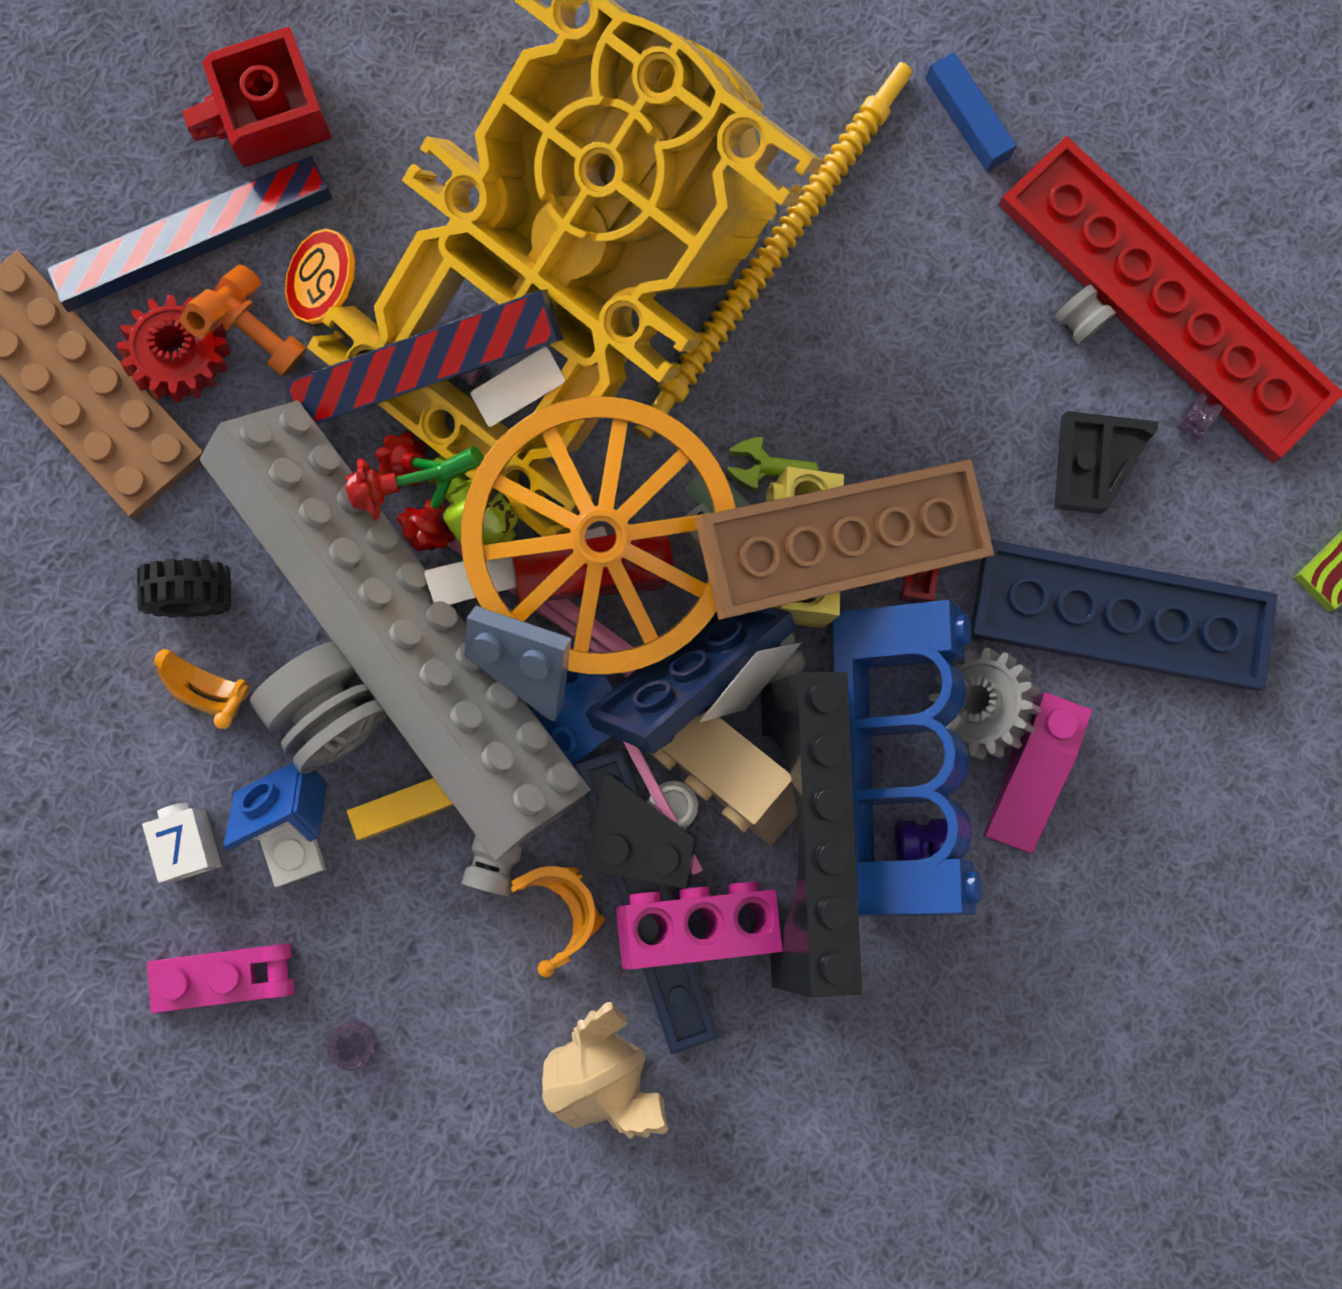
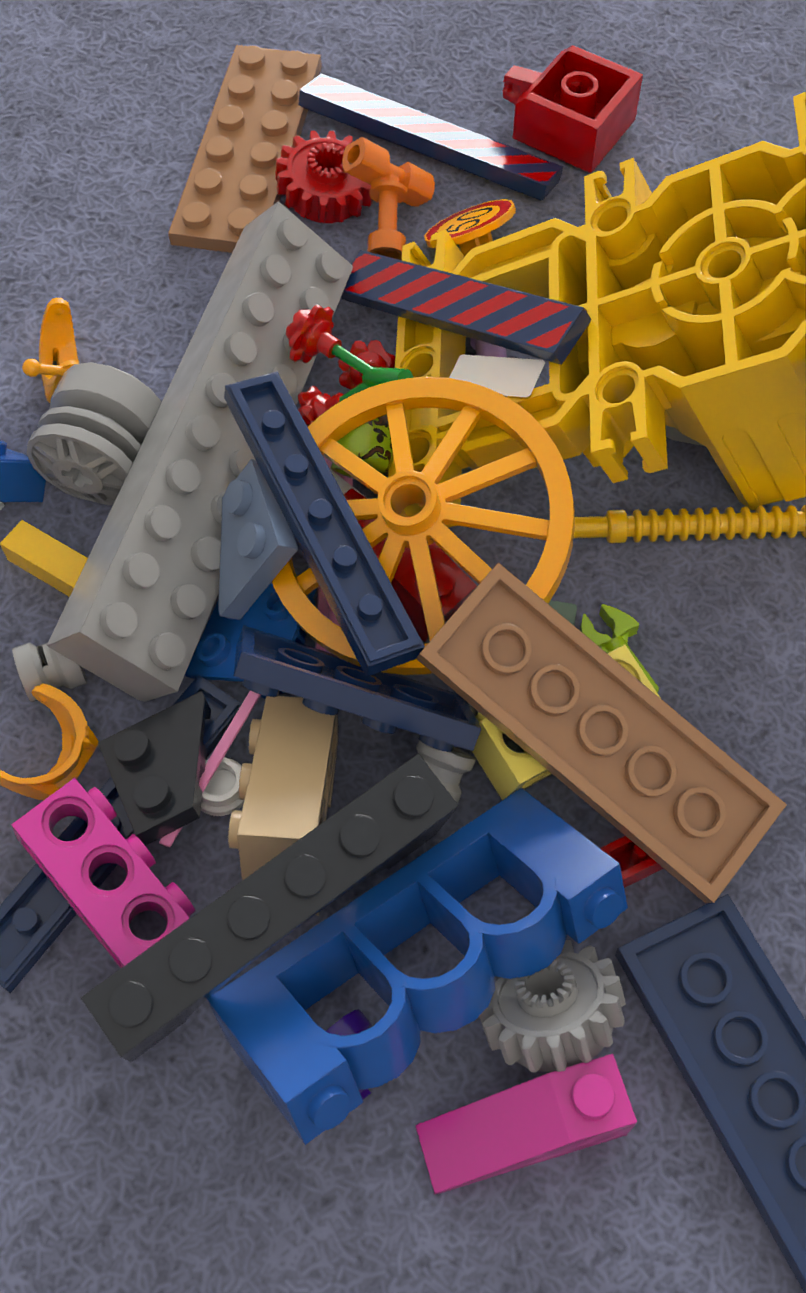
camera: 60 degrees right, 20 degrees down
(183, 588) = (132, 290): black tyre -> none
(555, 604) = (323, 524): none -> dark blue tile
(750, 681) = (381, 736): white sticker -> none

